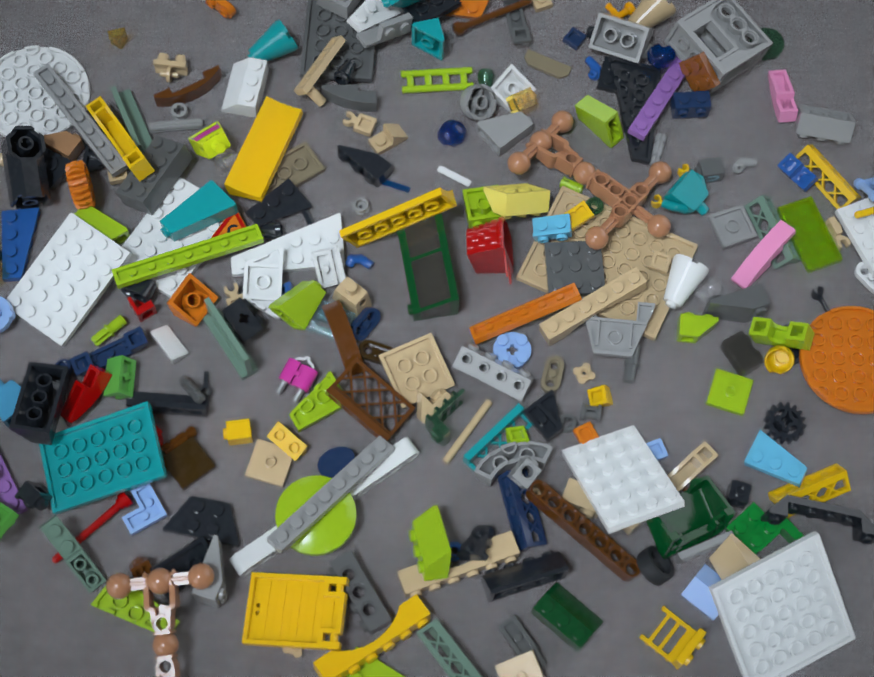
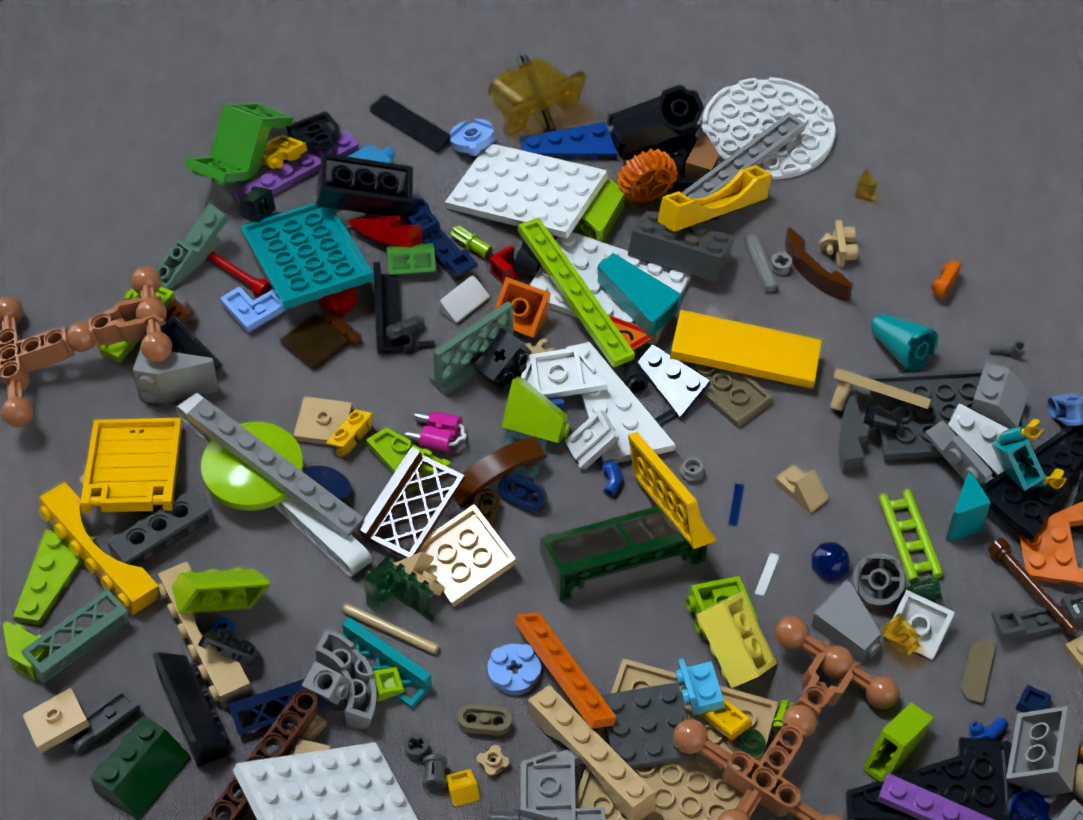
camera: 85 degrees right, 15 degrees down
(132, 118) = (756, 219): sand green fence -> none
(204, 518) = (245, 368): black wing -> none
(210, 141) = (740, 291): neon yellow torso -> none
(238, 432) = (357, 381): yellow brick -> none
(246, 87) = (835, 325): white slope -> none
(351, 296) = (558, 464): tan torso -> none
(362, 124) = (815, 453): tan plate -> none
(368, 164) = (751, 473): black slope -> none
(491, 248) = (654, 614): red piece -> none
(493, 371) = (474, 643): light grey brick -> none
(545, 416) = (419, 713): black wing -> none
(585, 433) = (405, 772): orange tile -> none

